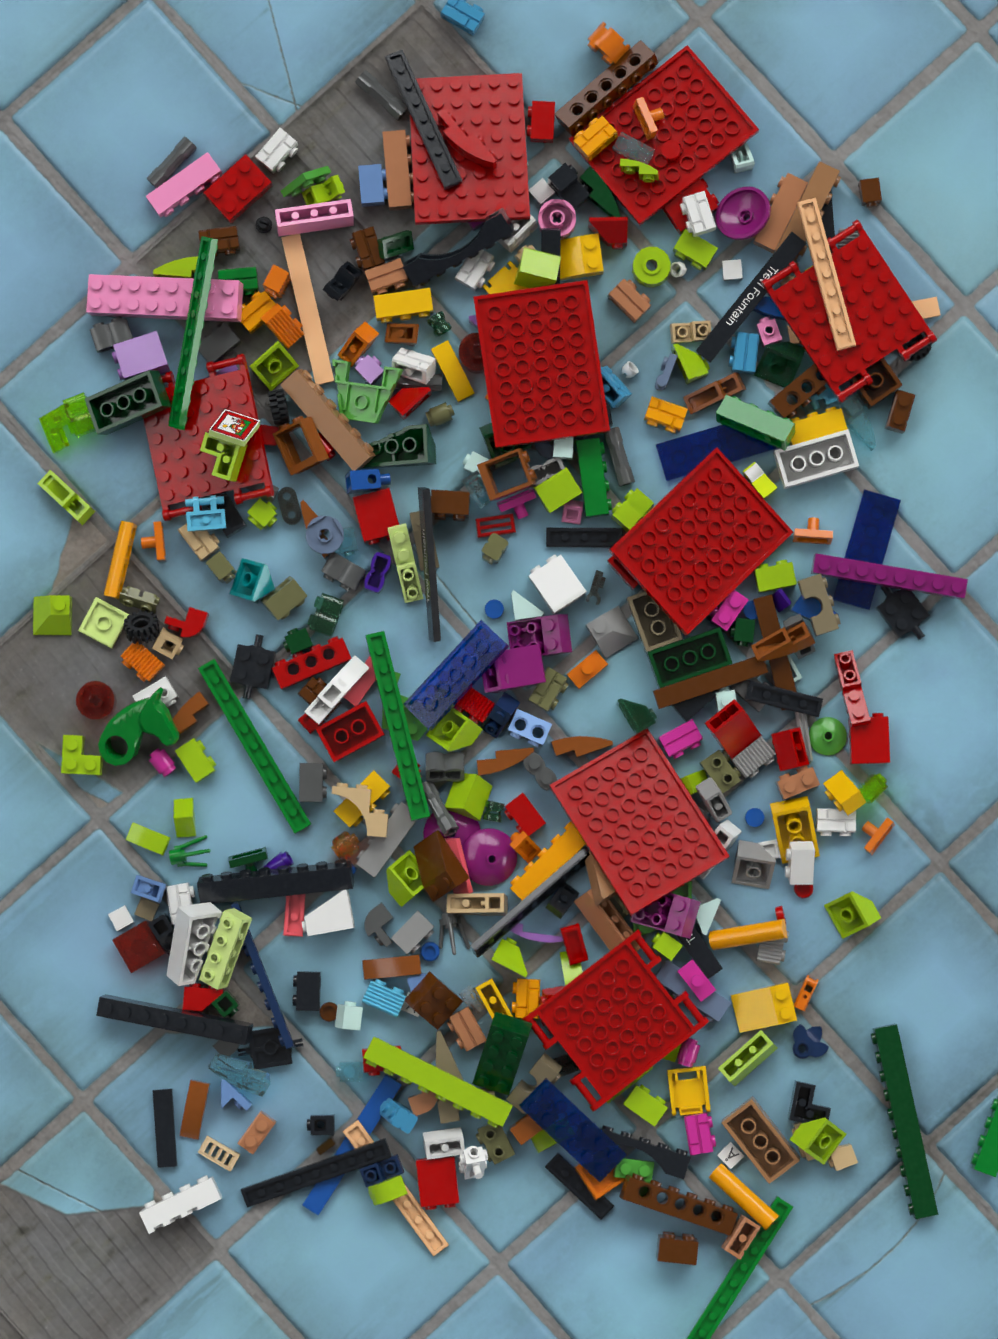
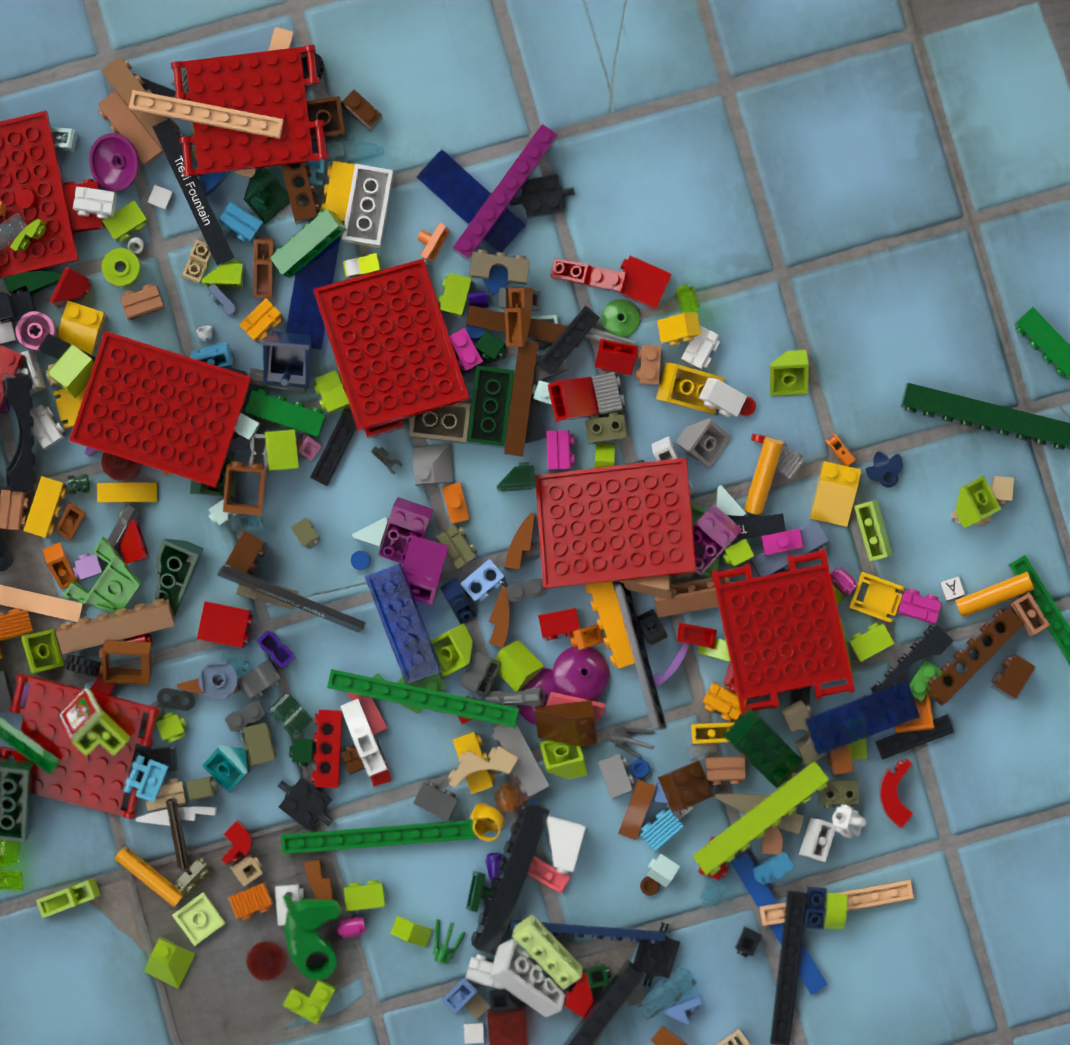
camera: 65 degrees left, 0 degrees up
(141, 627) = (216, 893): black tyre -> none
(148, 838) = (414, 974): lime slope -> none
(156, 541) = (149, 835): orange tile -> none
(170, 566) = (177, 833): none -> dark brown axle
(182, 551) = (186, 813): none -> white slope
(257, 1132) = (726, 1003): nougat brick -> none
(308, 990) = (622, 896): black brick -> none
(309, 578) = (250, 713): none -> dark grey brick
(316, 836) = (485, 820): none -> yellow piece
(325, 1146) = (768, 946): dark brown tile -> none
(350, 731) = (407, 744): red brick -> none
(358, 481) = (184, 626): blue torso -> none
(375, 920) = (587, 802): dark grey brick -> none
(405, 563) = (279, 619): yellowish green slope -> none
(415, 365) = (105, 523): white brick -> none
(437, 1182) = (850, 862): red brick -> none
(440, 414) = (160, 523): olive brick -> none
(476, 705) = (439, 618): red brick -> none
(478, 904) = (618, 704): tan slope -> none
(492, 518) = (297, 510): red tile -> none
(495, 807) = (538, 647): clear green wheel -> none
(510, 956) = (679, 698): lime slope -> none
(514, 1188) = (888, 794): none -> red arch
(517, 502) = (275, 492): dark pink tile -> none
(557, 584) = (365, 492): white slope -> none
(642, 454) = (287, 359): none -> dark blue piece
(713, 799) = (628, 447): light grey brick -> none
(754, 817) = (661, 418): blue tile -> none
(760, 1140) = (951, 554): medium nougat brick -> none
(768, 338) = (238, 195): bright pink brick -> none
(772, 848) = (696, 416): white tile -> none
(801, 1104) = (937, 502): black brick -> none
(870, 192) = (151, 39): reddish brown brick -> none
(877, 834) = (729, 317): orange tile -> none

